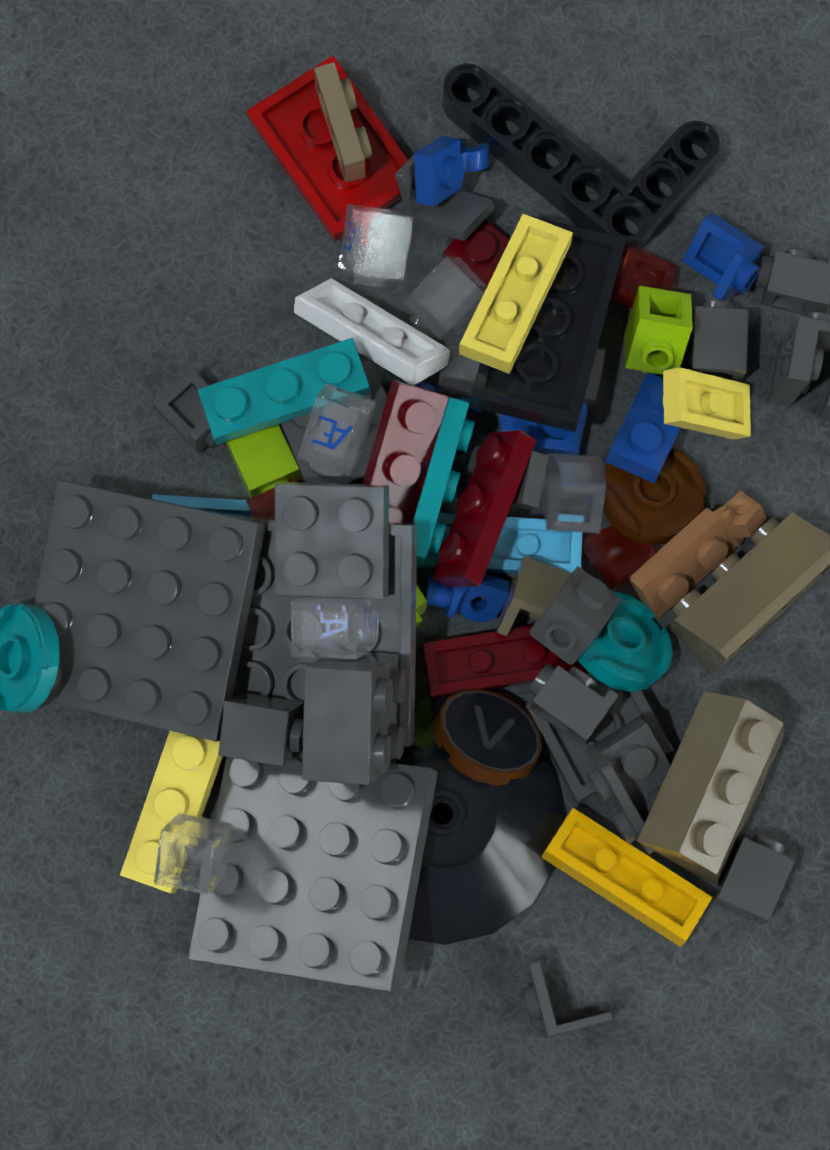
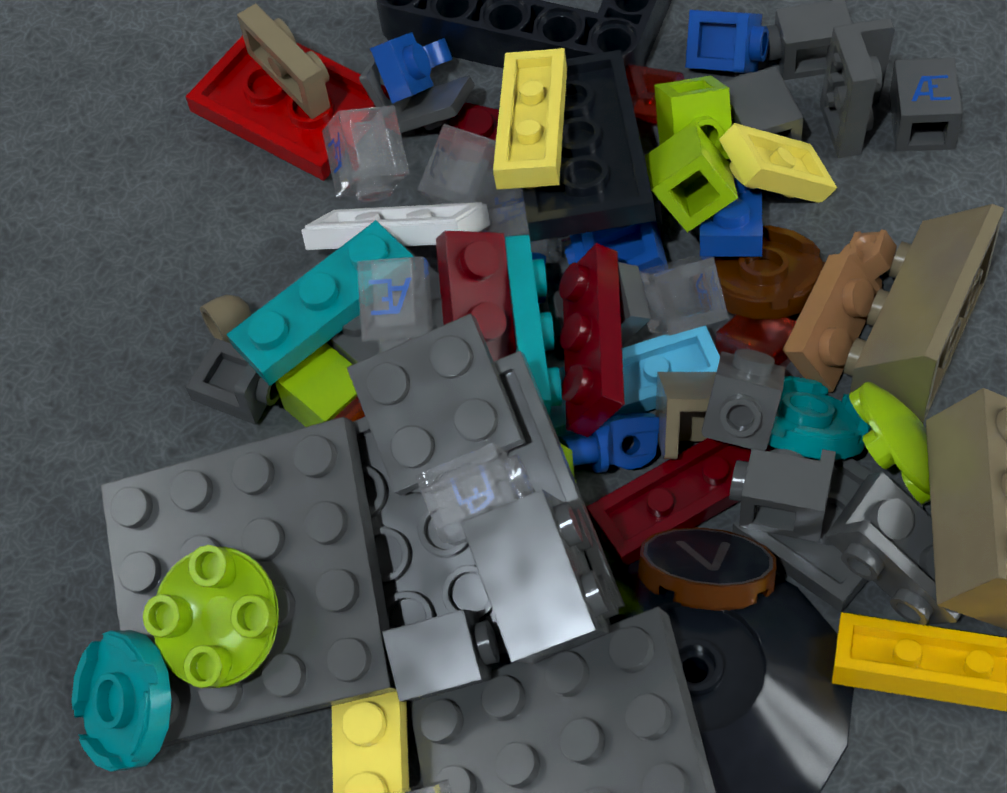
camera: 10 degrees left, 20 degrees down
(106, 635) = (214, 617): none -> lime dish
(208, 348) = (224, 314): none -> dark tan hinge
(625, 395) = (690, 177): none -> lime brick
(676, 688) = (895, 437): none -> lime dish

